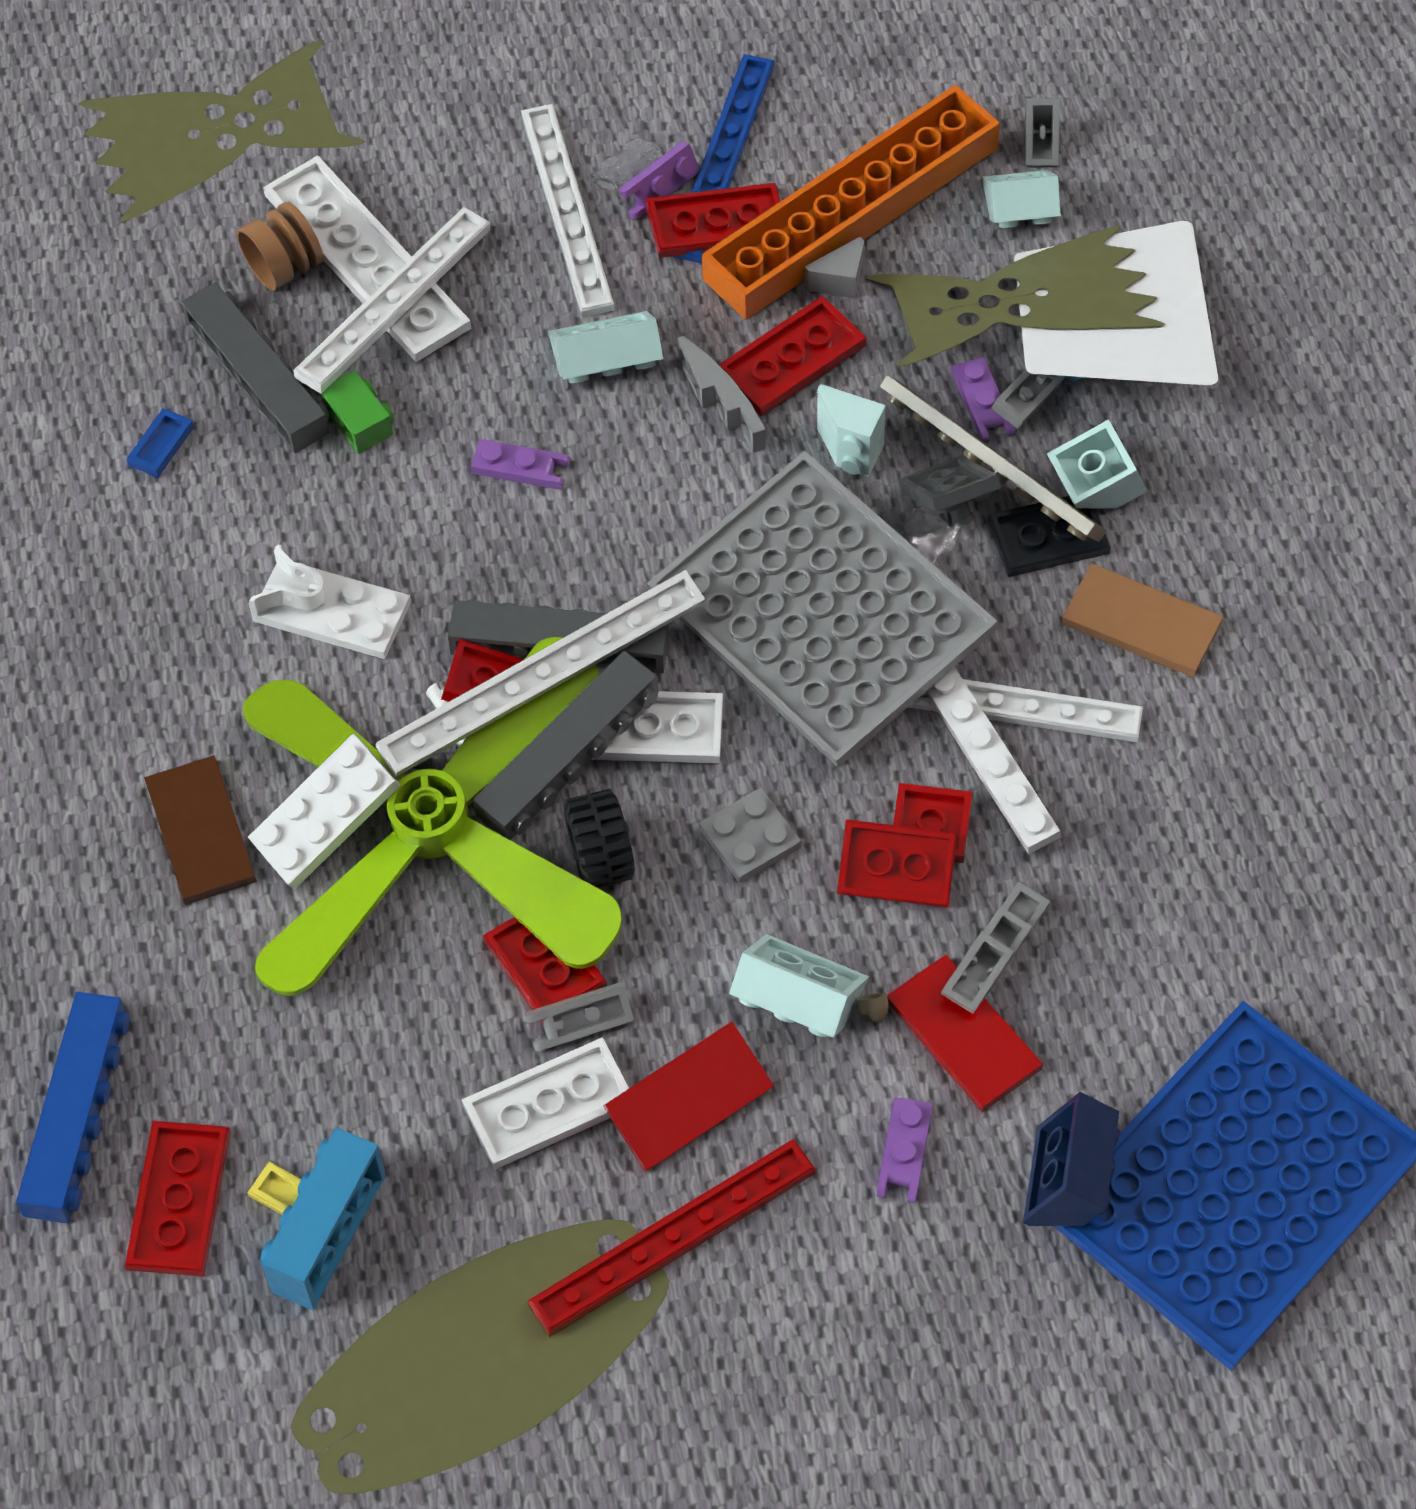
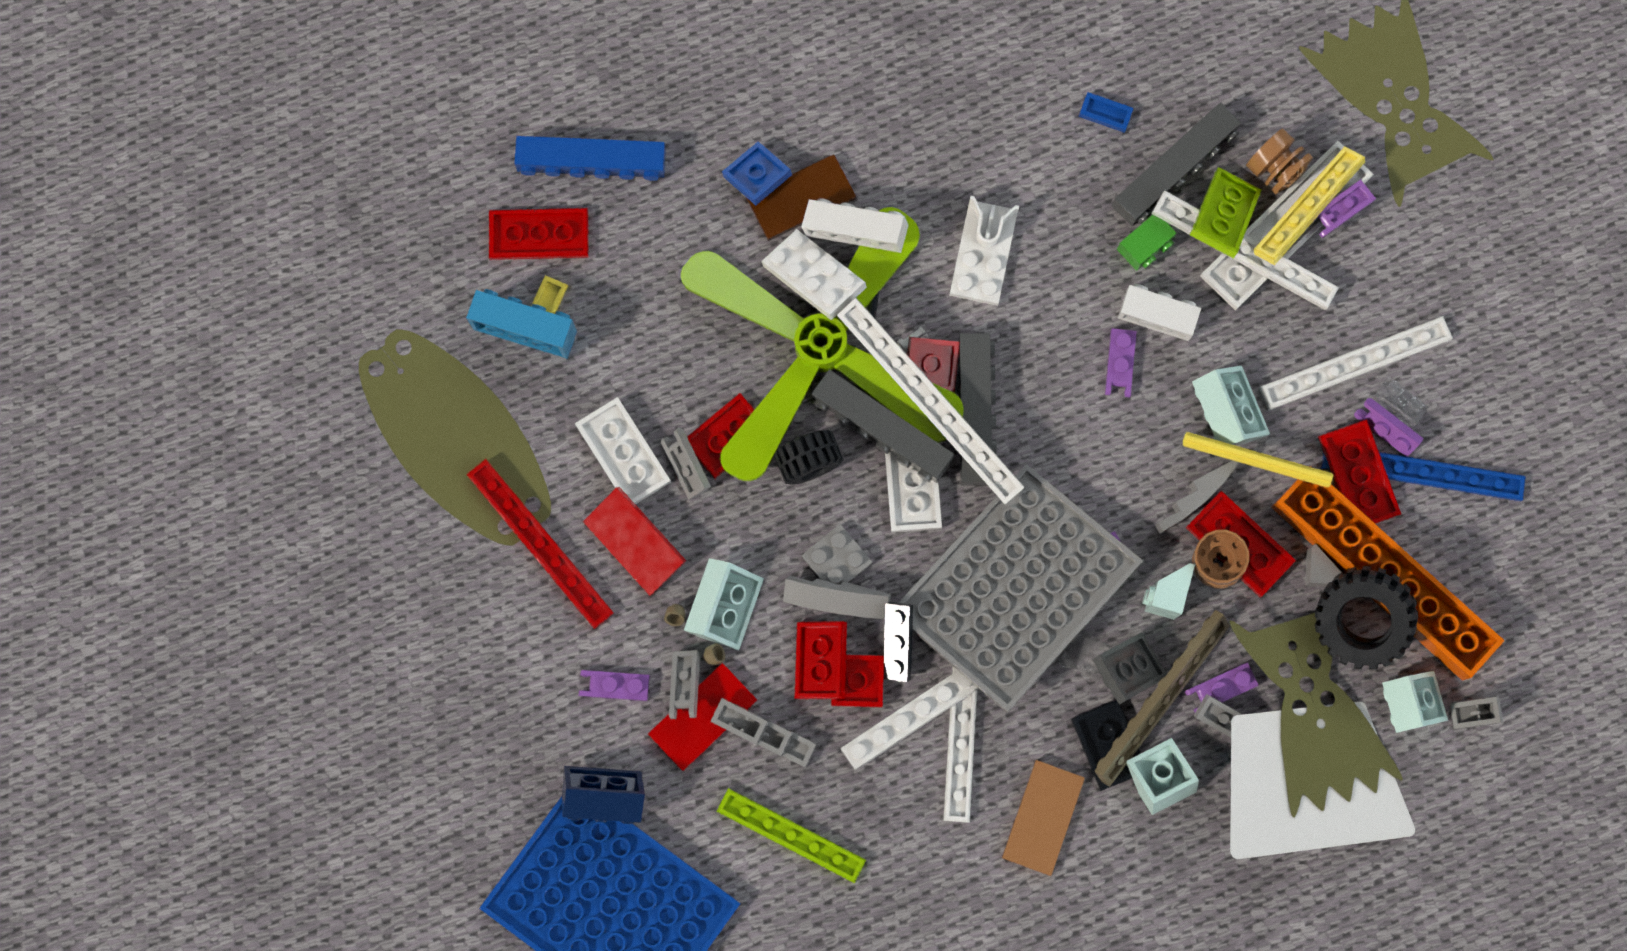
camera: 80 degrees right, 20 degrees up
(151, 876) = (756, 173): none -> blue plate
(263, 744) = (855, 225): none -> white brick
(338, 309) = (1225, 212): none -> lime tile
(349, 218) = (1309, 205): none -> light yellow tile
(358, 186) = (1345, 207): none -> medium lavender hinge
(459, 408) = (1159, 312): none -> white brick
(684, 310) = (1257, 459): none -> light yellow axle
(807, 1052) = (675, 615): none -> dark tan hinge
(809, 832) = (836, 598): none -> light grey slope
(812, 354) = (1227, 546): none -> medium nougat wheel
(880, 757) = (898, 641): none -> plate
(911, 1044) = (684, 682): none -> light grey hinge
(945, 191) = (1366, 650): none -> black tyre
(1145, 934) = (791, 835): none -> lime tile

